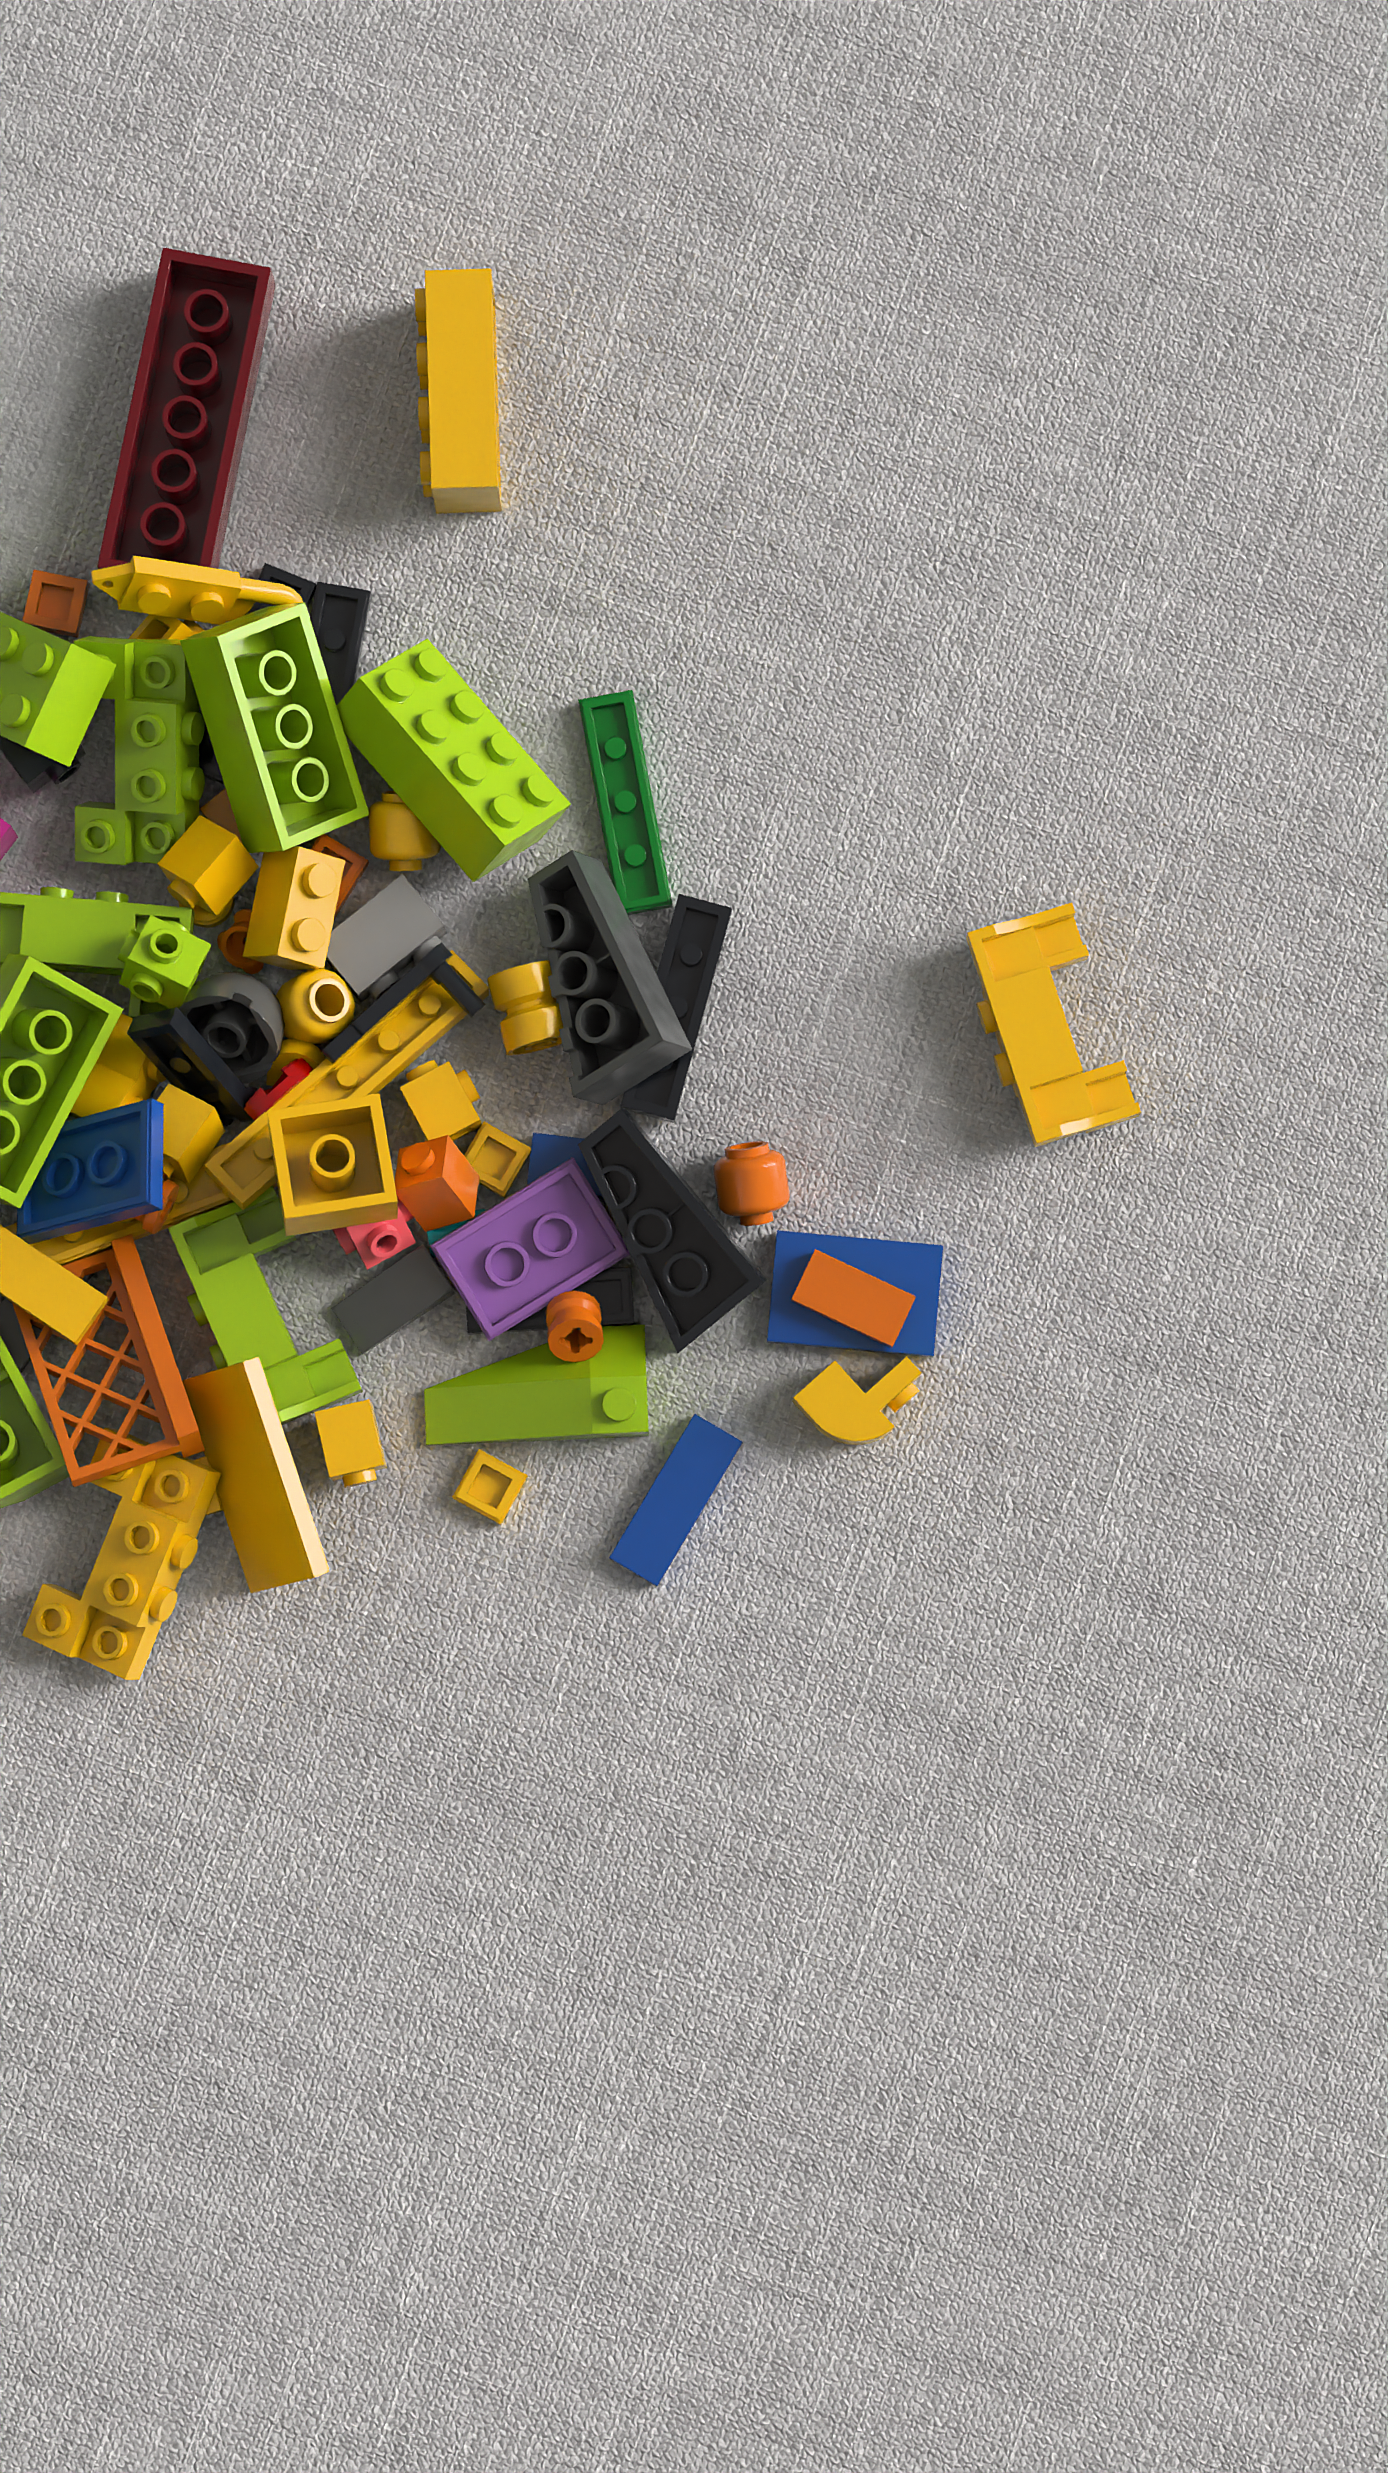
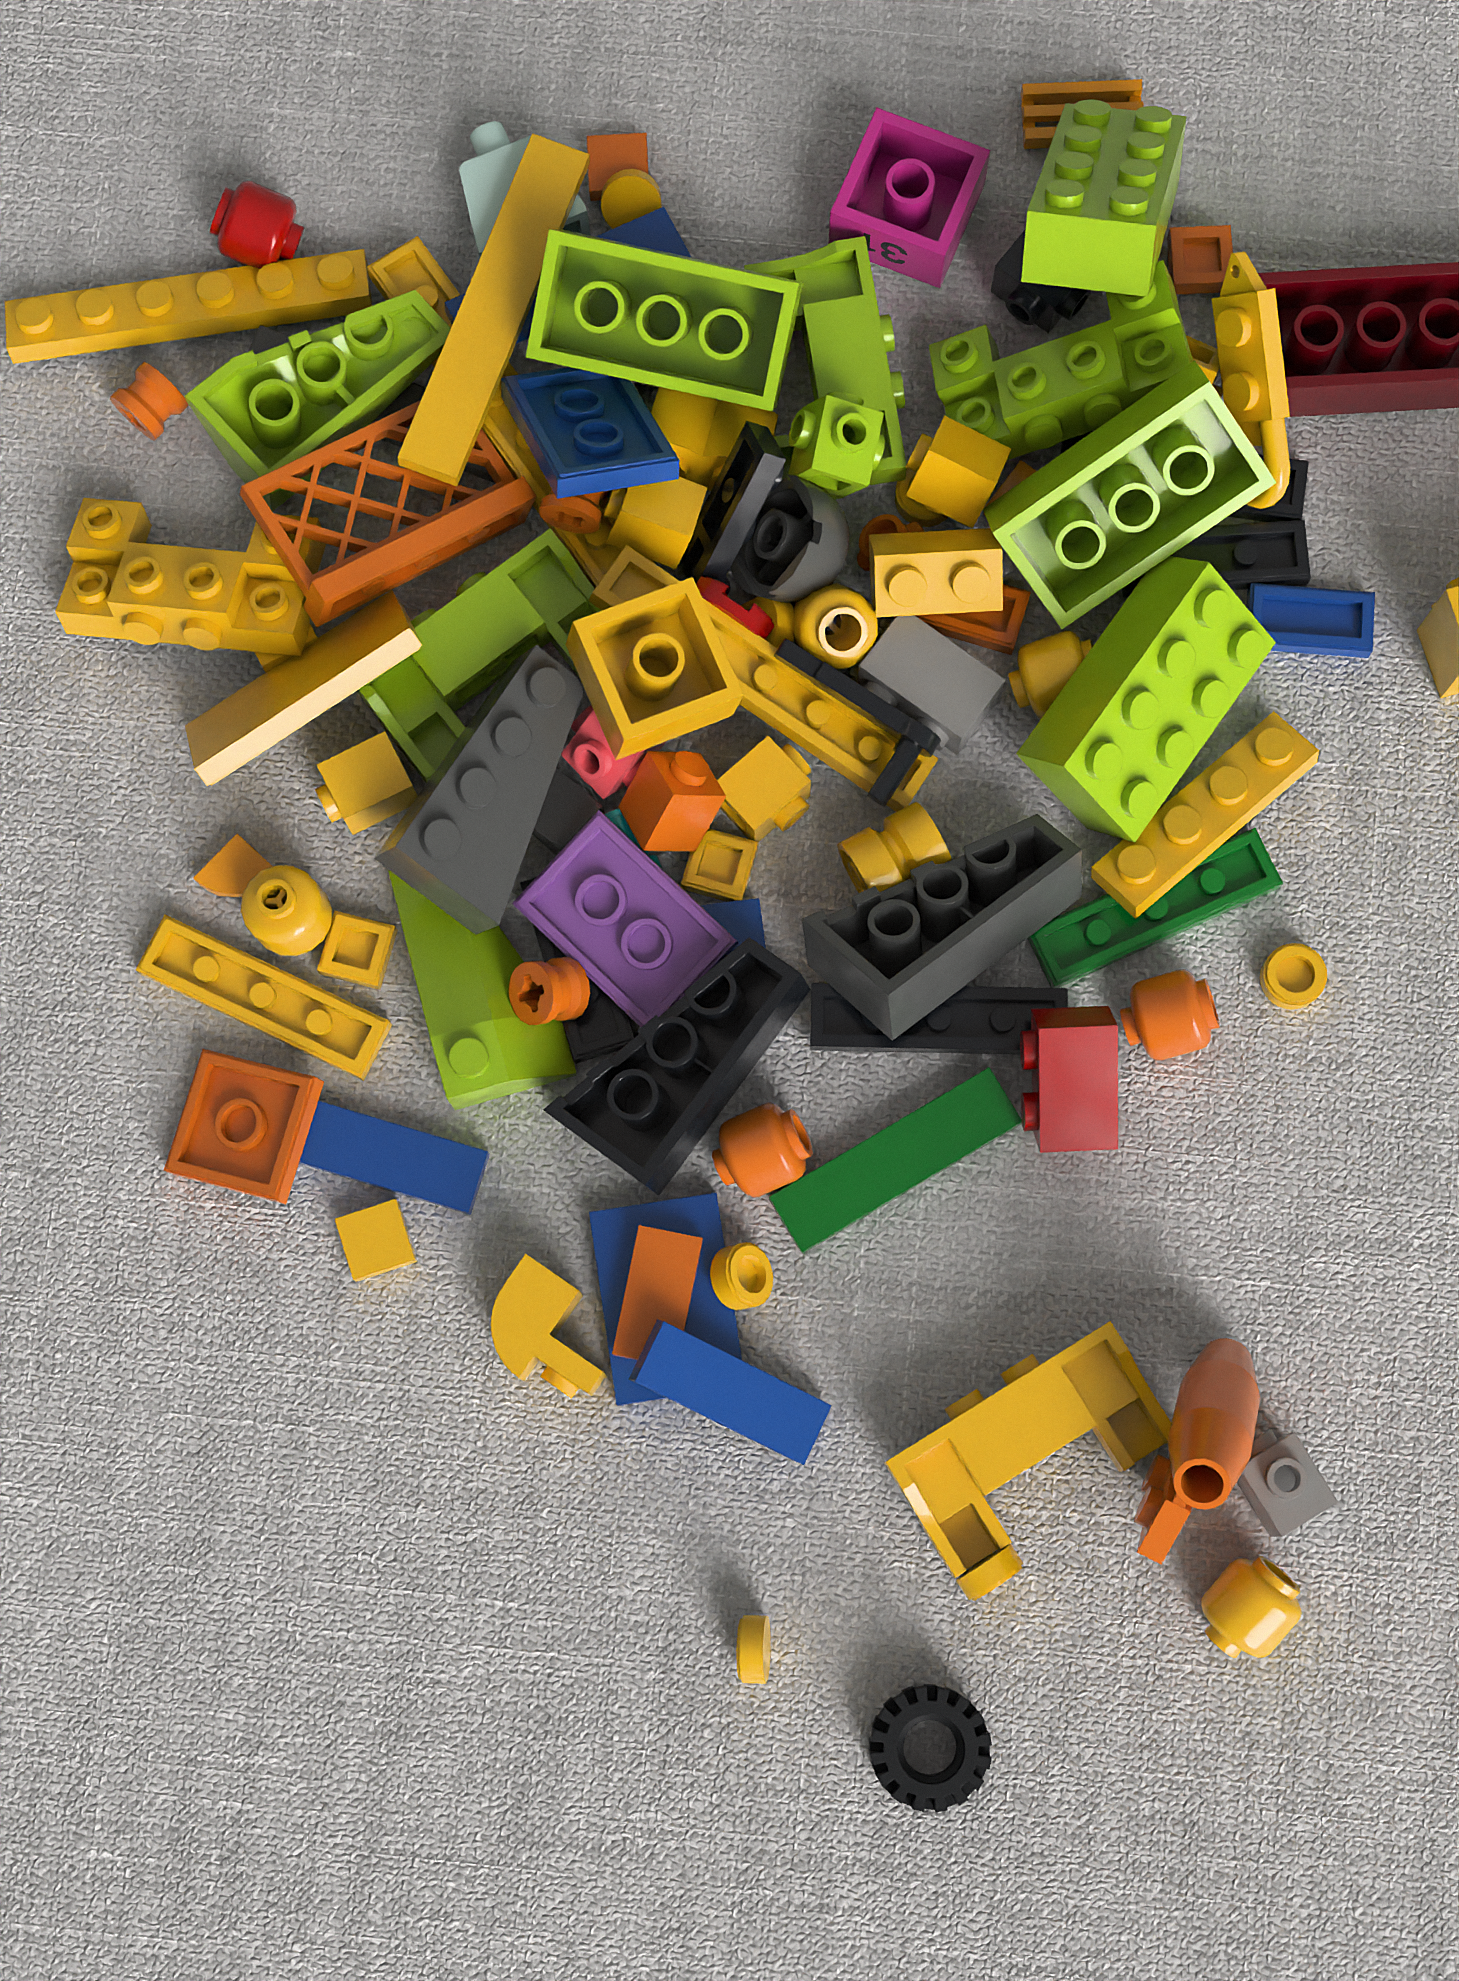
camera: 80 degrees right, 5 degrees down
(392, 1335) = (483, 801): none -> dark grey wedge
(395, 1573) = (231, 869): none -> light orange tile
(406, 599) = (1315, 619): none -> blue tile
(465, 1534) = (286, 910): none -> yellow head
(511, 1576) = (264, 997): none -> yellow tile
(557, 737) = (1205, 814): none -> yellow plate
(621, 1615) = (244, 1126): none -> orange tile
(712, 703) = (1293, 976): none -> yellow tile
(722, 814) = (1170, 1014): none -> orange head
(745, 1526) = (375, 1240): none -> yellow tile
(758, 909) = (1072, 1079): none -> brick
(786, 1075) = (895, 1160): none -> green tile
(852, 1226) = (741, 1276): none -> yellow tile
(947, 1257) = (730, 1392): none -> blue tile
(1086, 881) = (1206, 1444): none -> orange plate
(1127, 831) = (1283, 1483): none -> light grey brick
(1143, 1084) = (990, 1572): none -> yellow tile
(1157, 1291) = (753, 1649): none -> yellow tile
(1220, 883) = (1251, 1607): none -> yellow head
(1277, 1136) = (971, 1754): none -> black tyre

